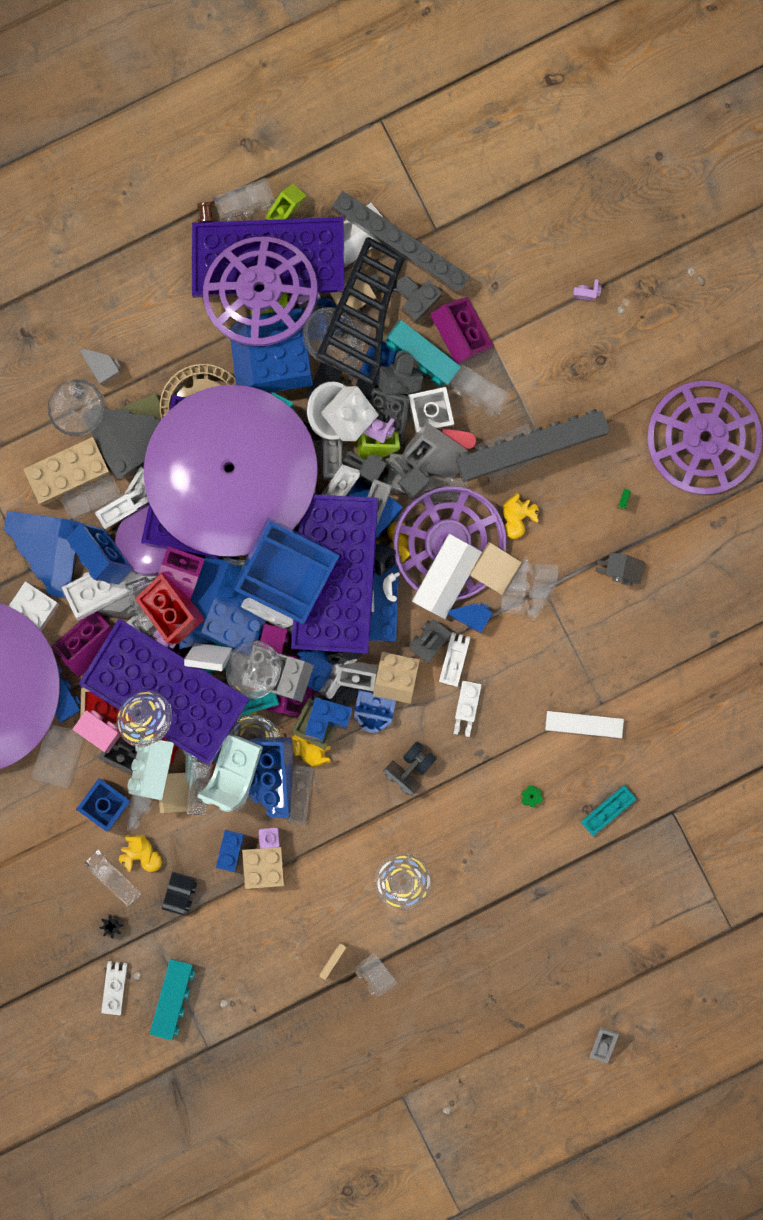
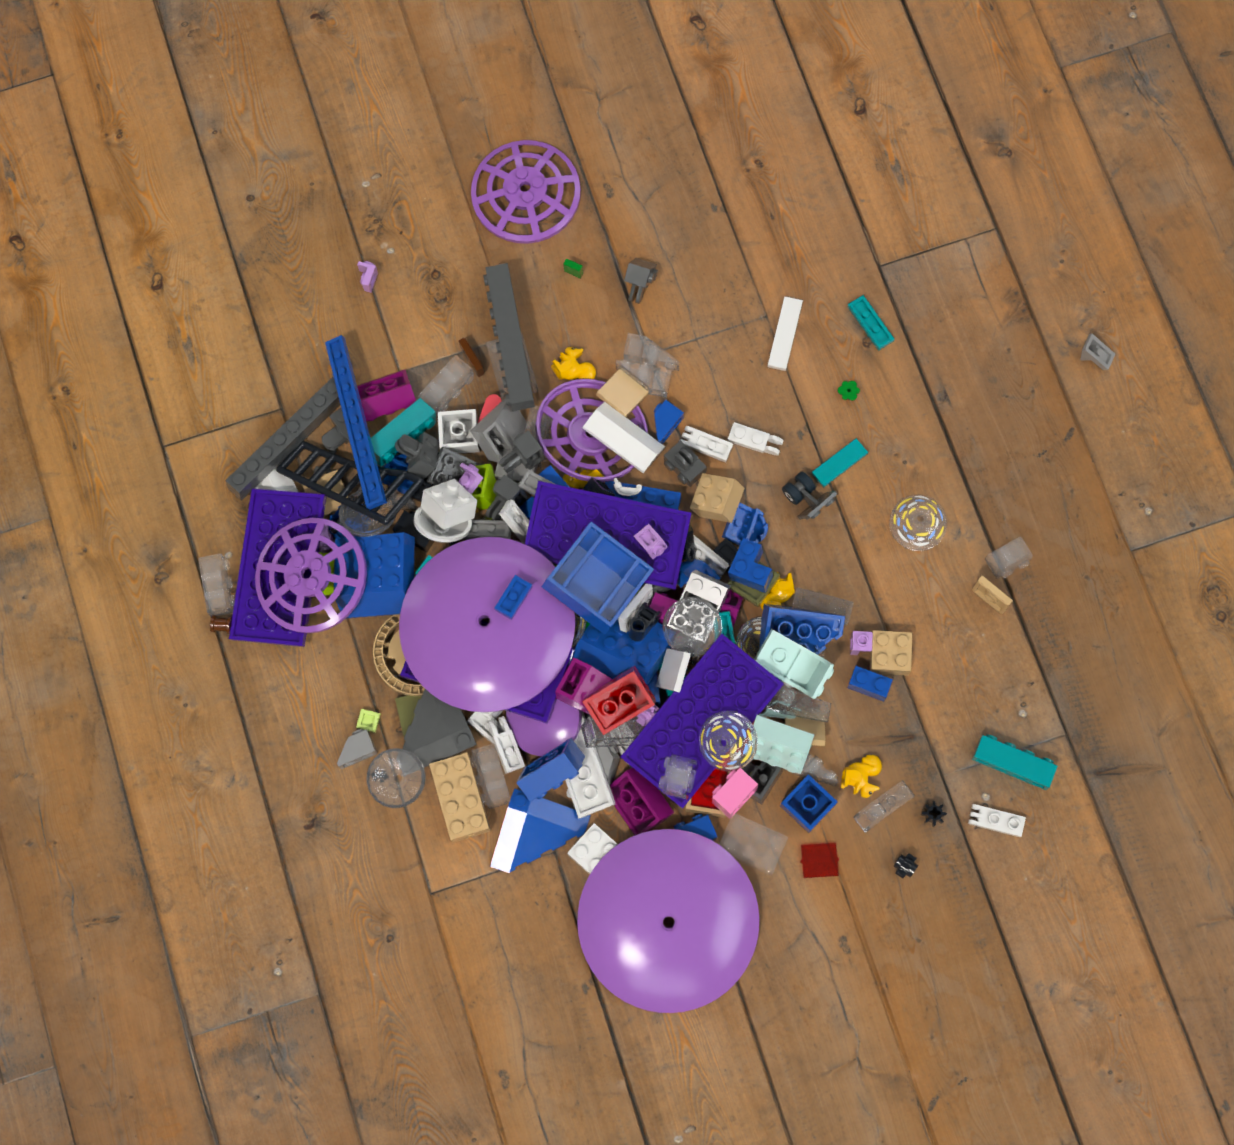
camera: 80 degrees left, 10 degrees down
(54, 822) = (819, 860): none -> clear red piece
(58, 904) = (905, 865): none -> black gear
(103, 676) = (678, 776): none -> clear brick
(131, 371) = (368, 720): none -> yellowish green tile
(178, 893) = (907, 741): black brick -> none
(252, 491) = (513, 597): none -> blue plate
(255, 623) = (644, 619): none -> black piece
(286, 203) = (228, 544): lime slope -> none
(331, 617) = (650, 541): none -> lavender bracket
(357, 675) = (710, 533): light grey slope -> none
(420, 307) = (355, 423): none -> blue plate
(453, 796) = (839, 463): none -> teal tile
(513, 411) = (472, 358): none -> reddish brown tile

